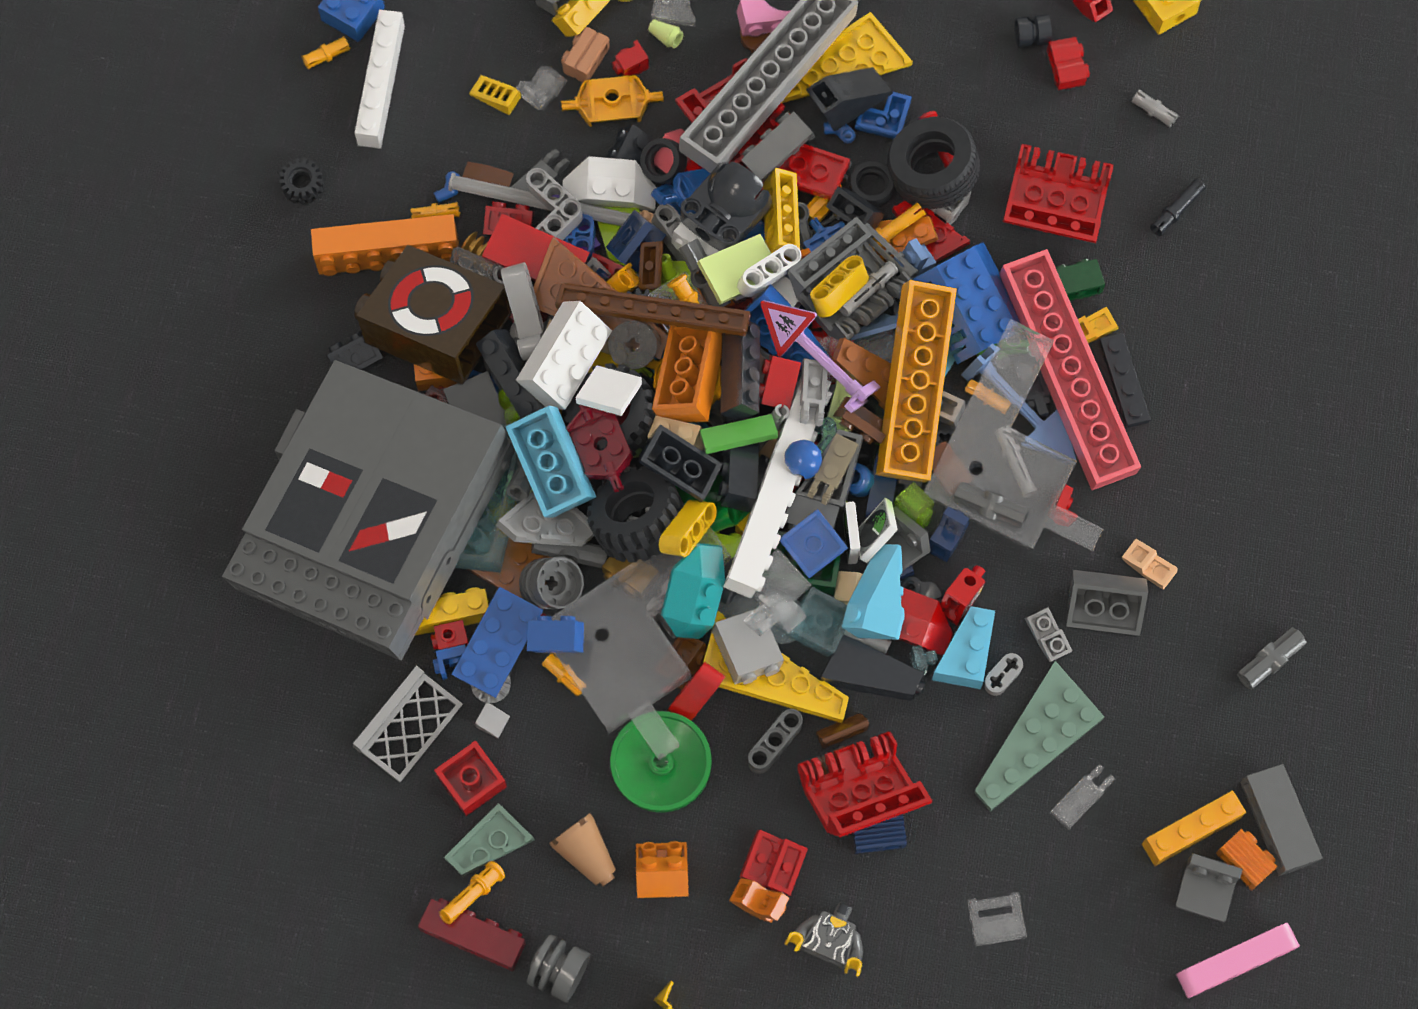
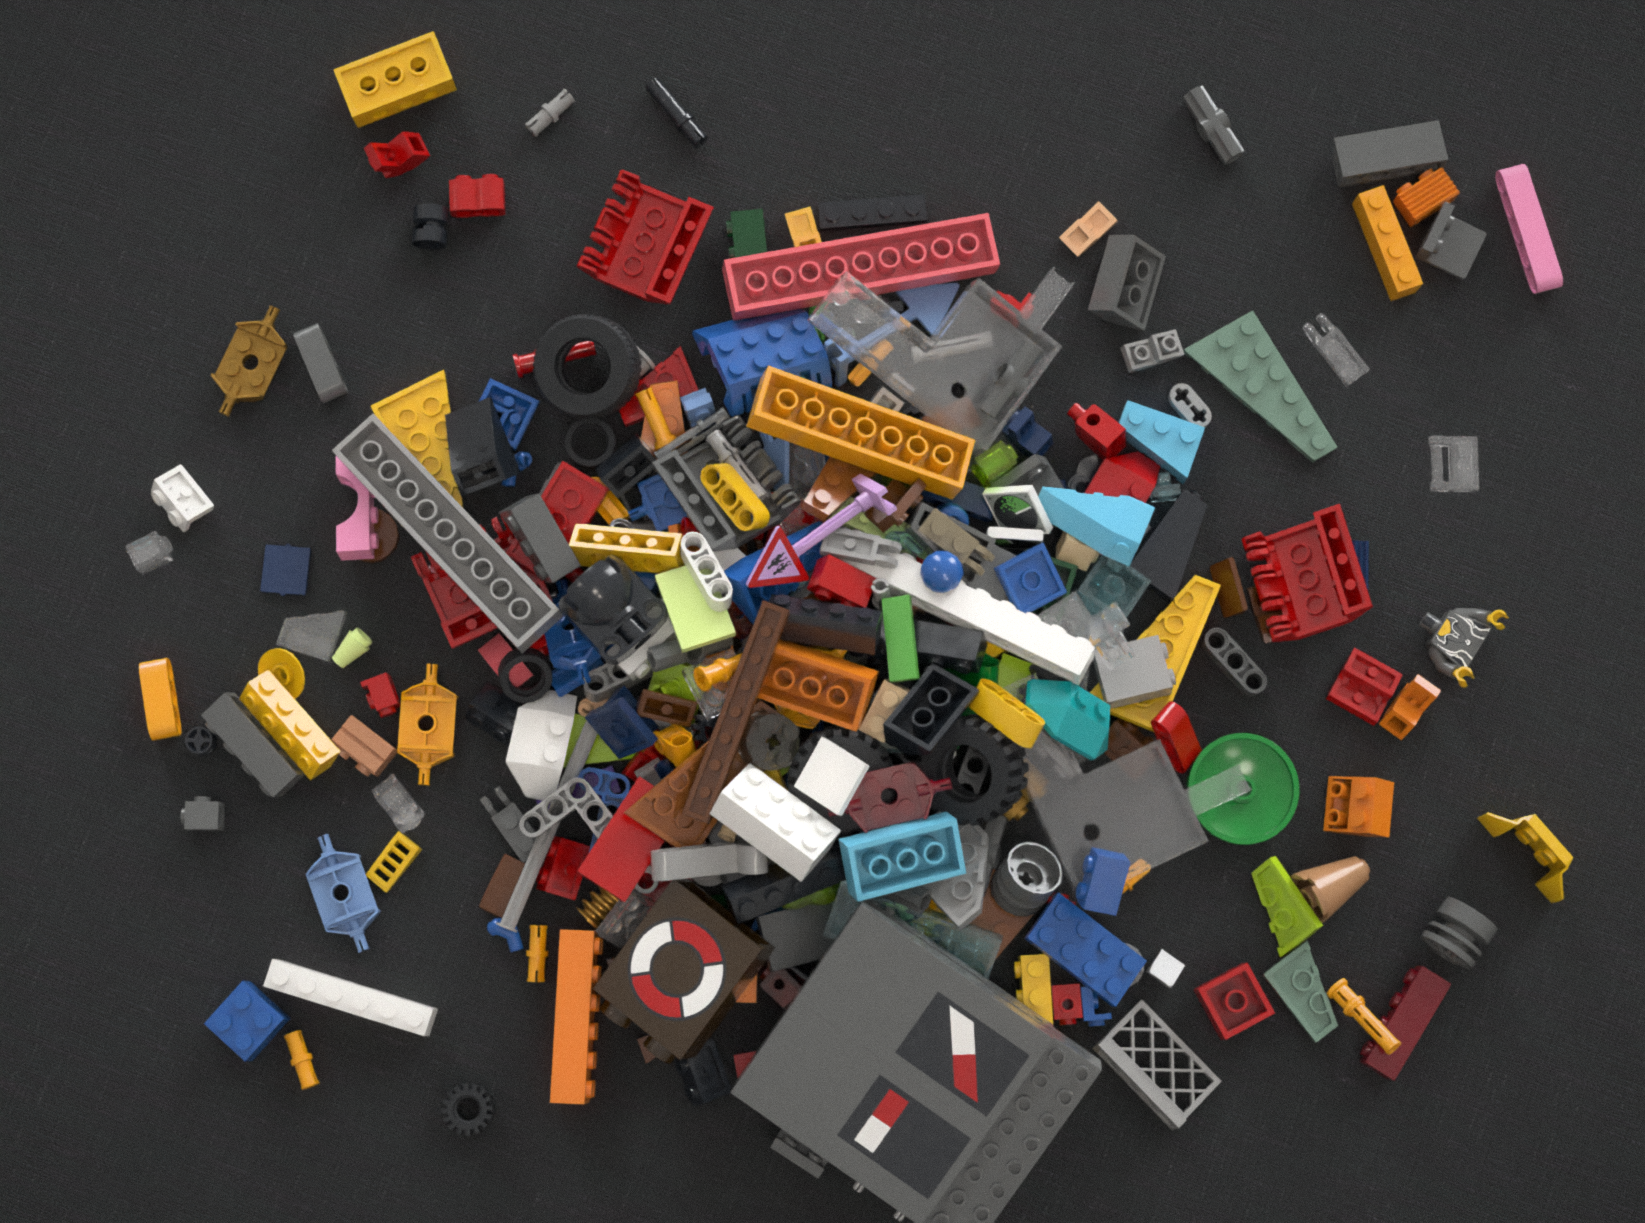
camera: 80 degrees left, 10 degrees up
(451, 73) = (358, 909): none -> medium blue plate
(555, 819) = (1287, 908): none -> lime wing

